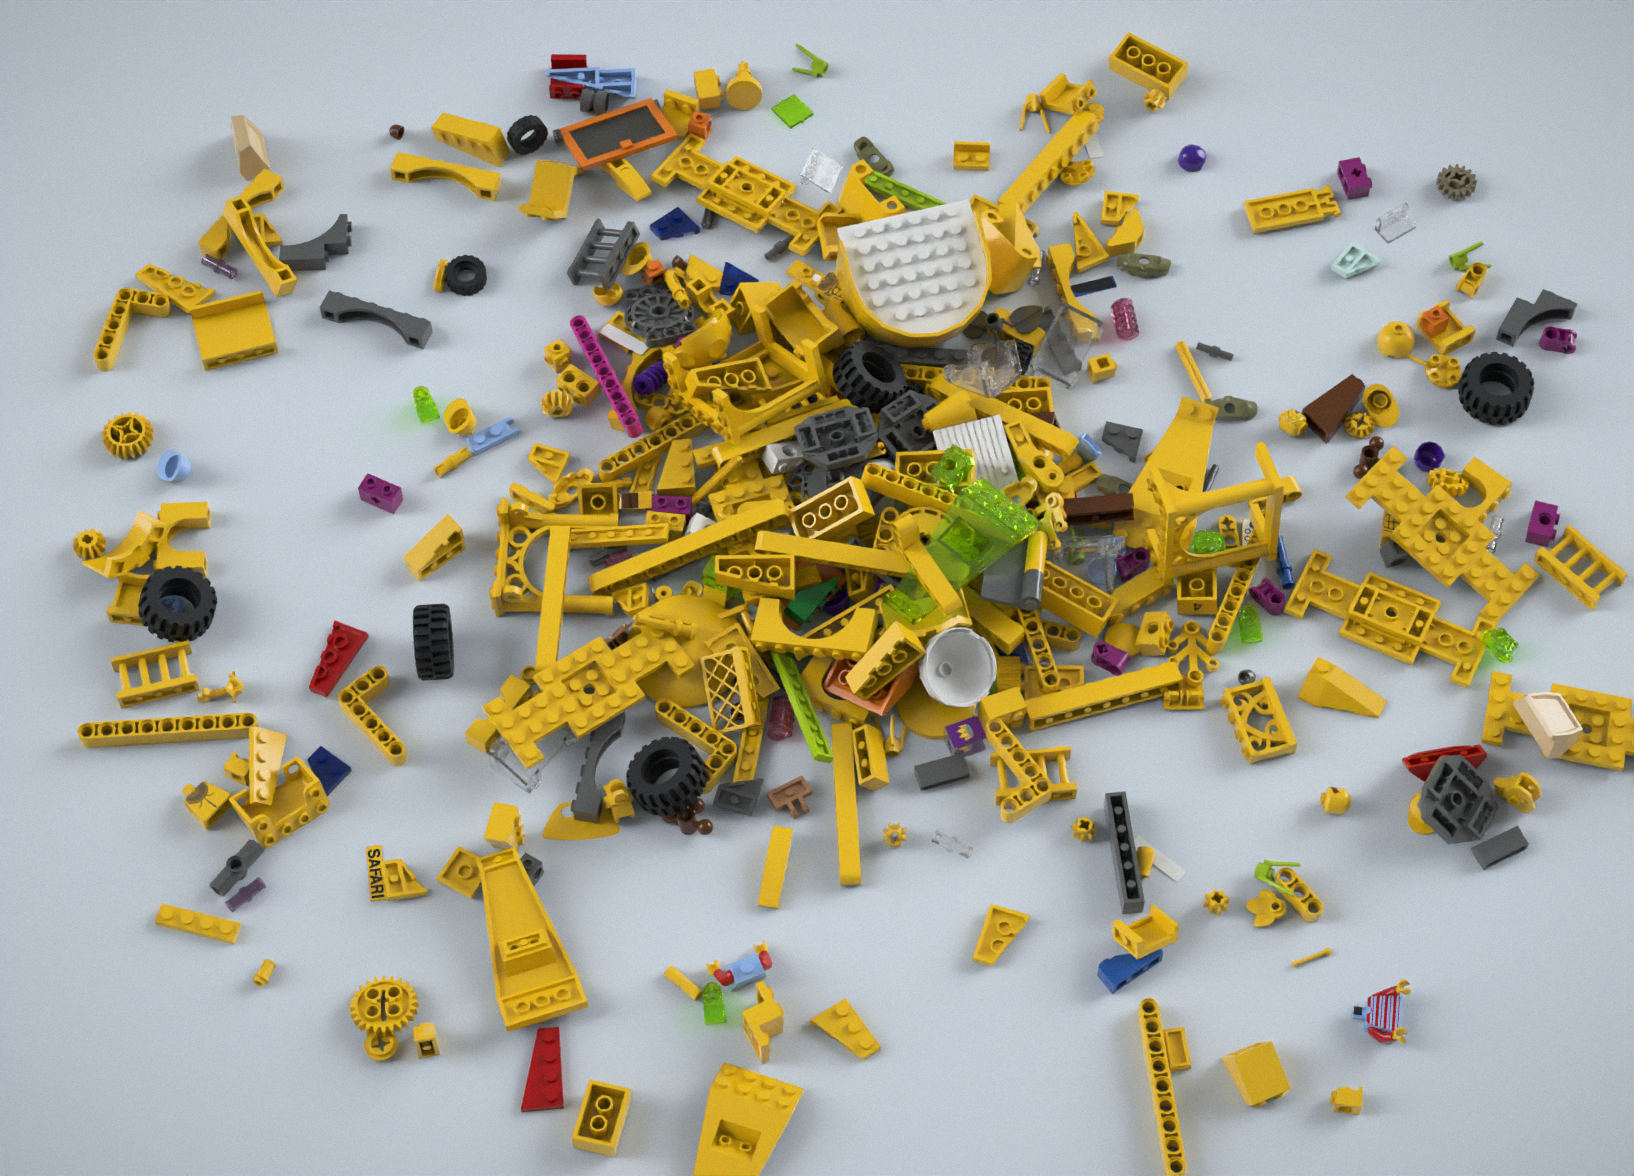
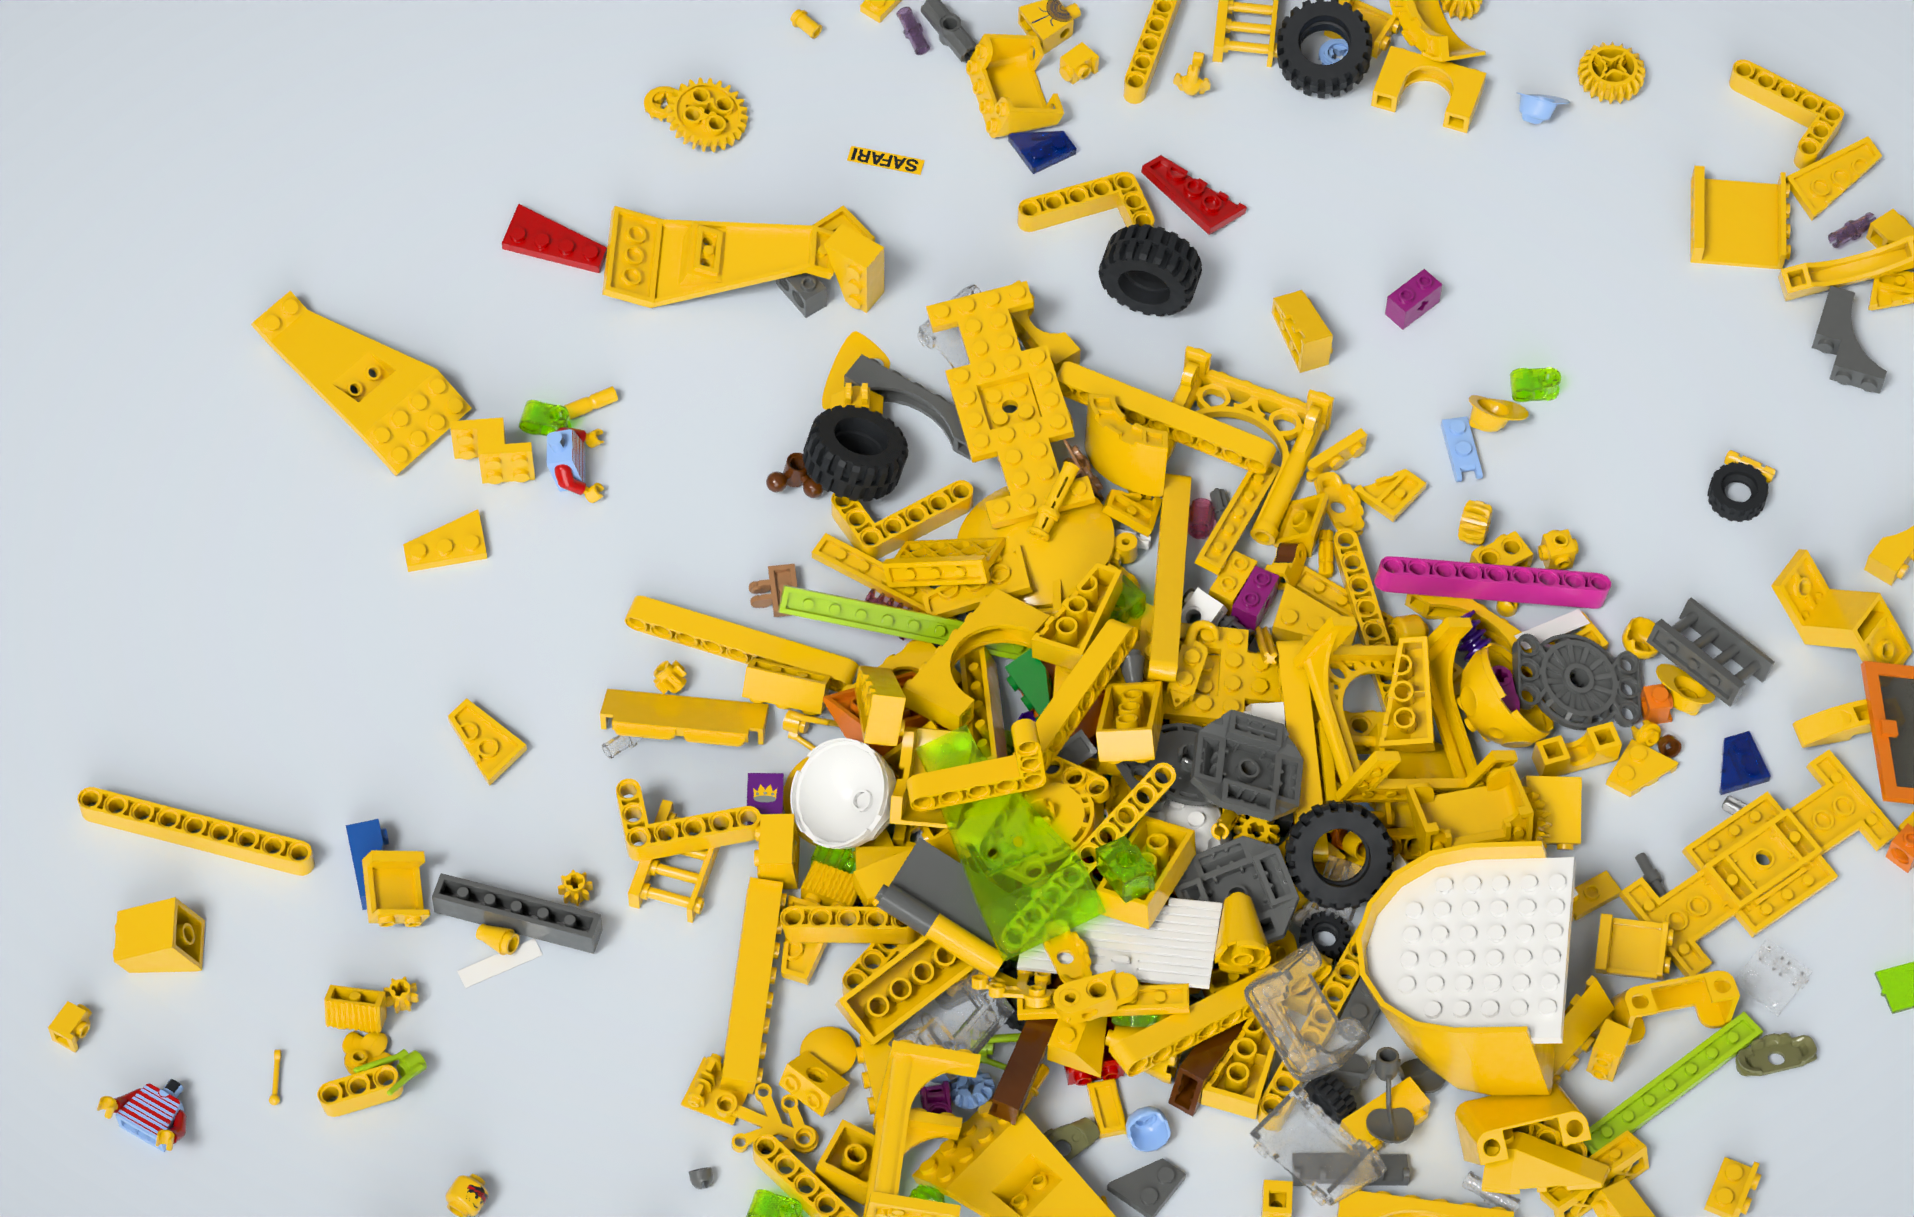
camera: 110 degrees right, 0 degrees up
(265, 759) = (1076, 85): yellow wing -> none
(343, 308) = (1666, 403): dark grey arch -> none
(399, 881) = (859, 173): yellow wing -> none
(426, 1040) = (644, 136): yellow slope -> none
(452, 461) = (1436, 391): yellow pin -> none
(595, 612) = (1124, 452): none -> yellow panel
(601, 1118) = (462, 266): yellow brick -> none
(678, 293) = (1580, 705): yellow pin -> none
(732, 278) = (1610, 807): clear blue wing -> none
(739, 795) = (803, 533): dark grey wing -> none
(775, 867) = (696, 542): yellow slope -> none
(928, 825) = (675, 715): none -> yellow slope
(941, 771) = (733, 770): dark grey piece -> none
(1071, 463) = (1133, 1094): yellow cone -> none
(1111, 658) = (801, 1020): magenta piece -> none
(1177, 1049) = (240, 874): yellow tile -> none
(1244, 920) = (355, 1008): none -> yellow brick
(1279, 720) = (655, 1187): yellow fence -> none

